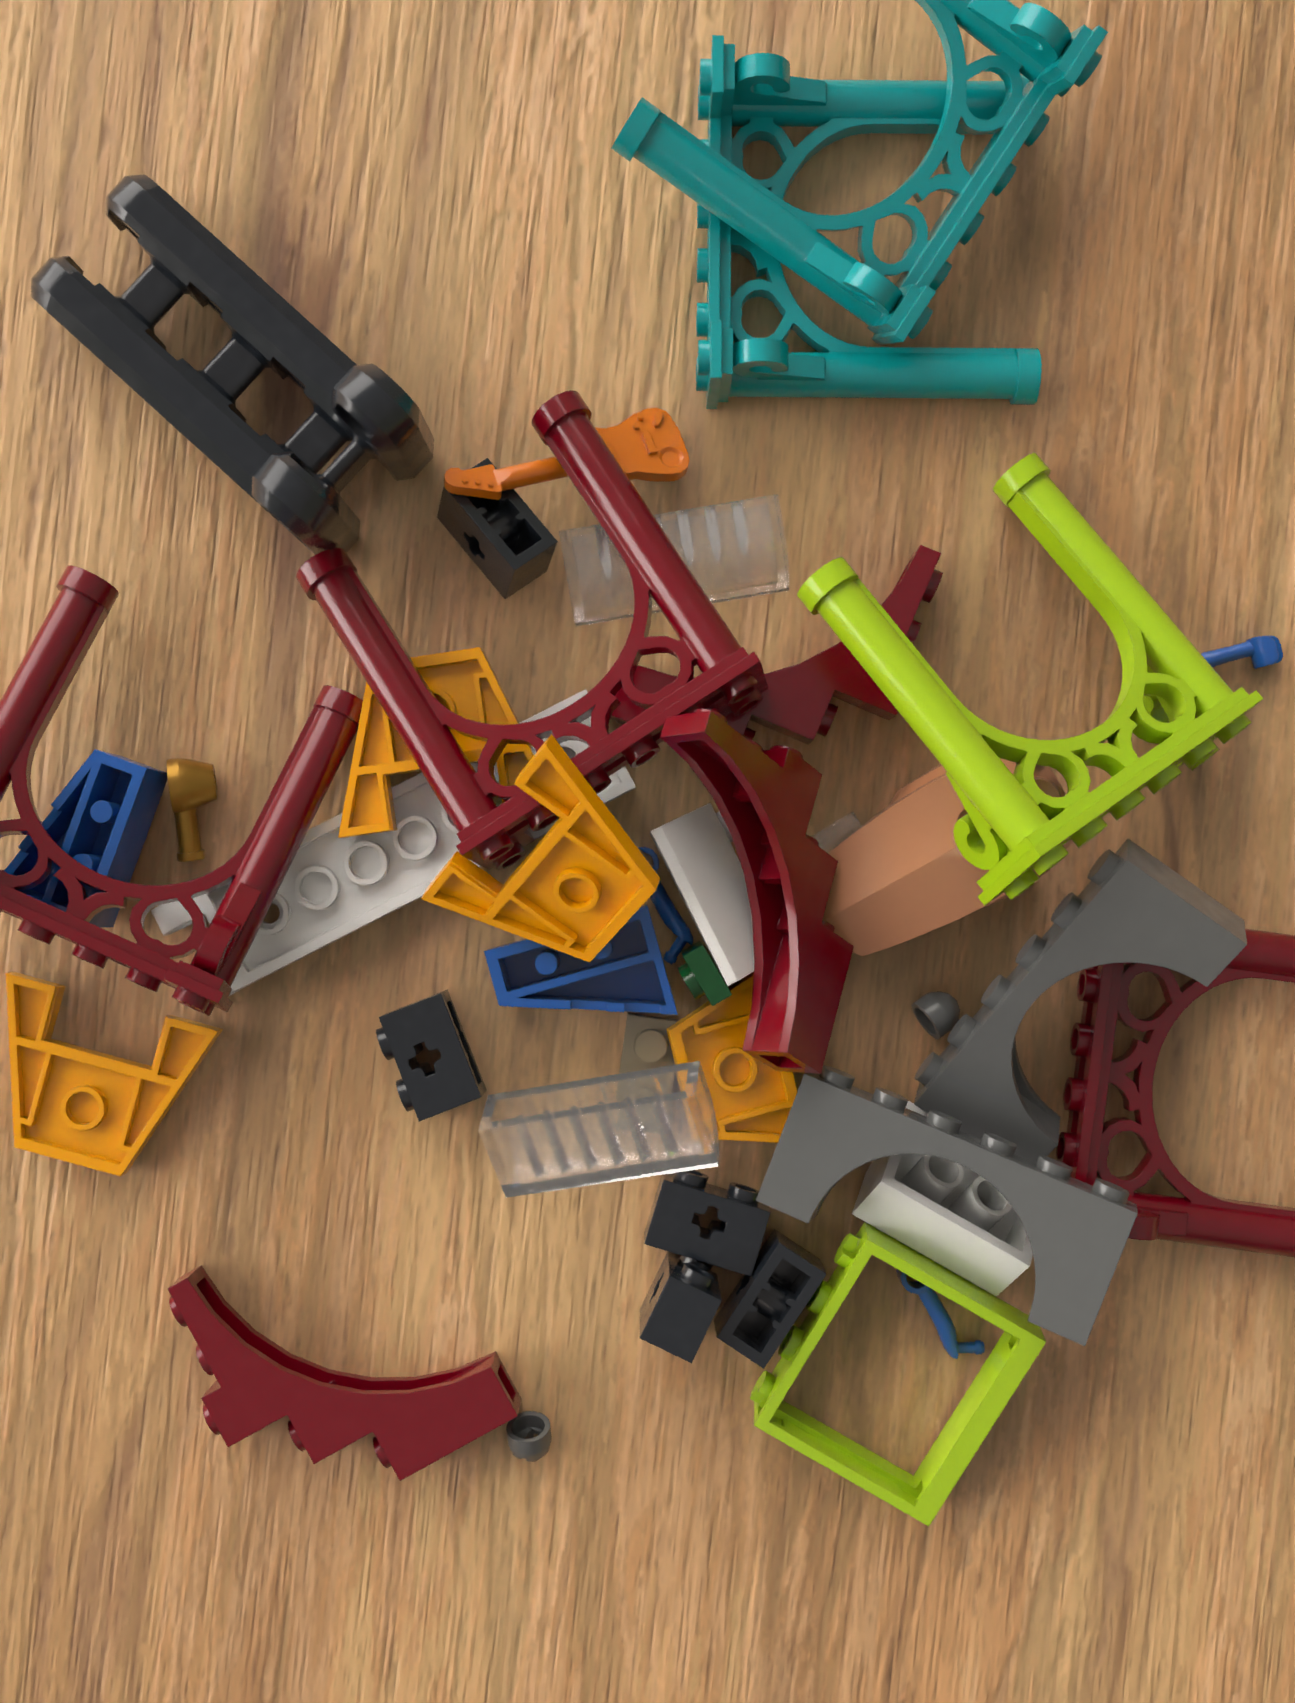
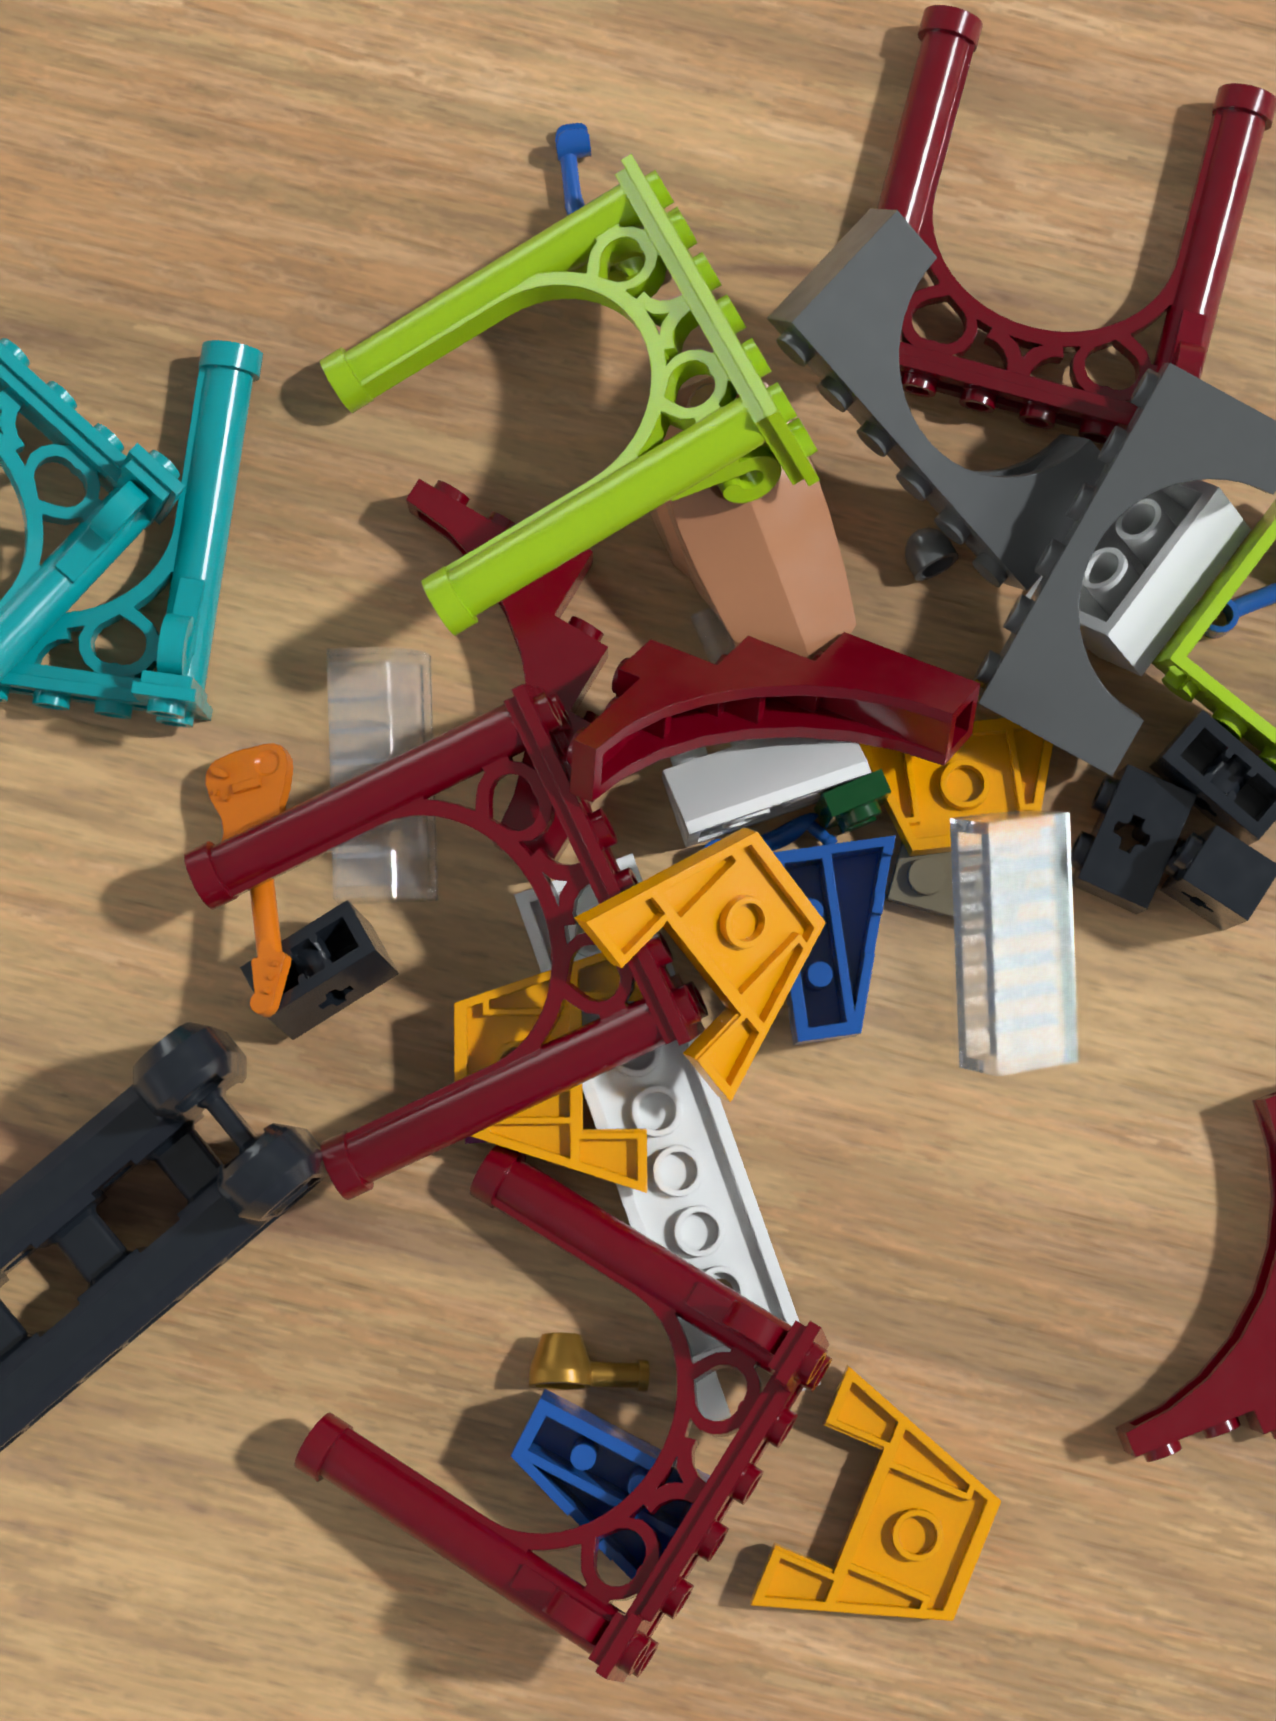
camera: 85 degrees left, 5 degrees down
(455, 1073) = (936, 1101): black brick -> none

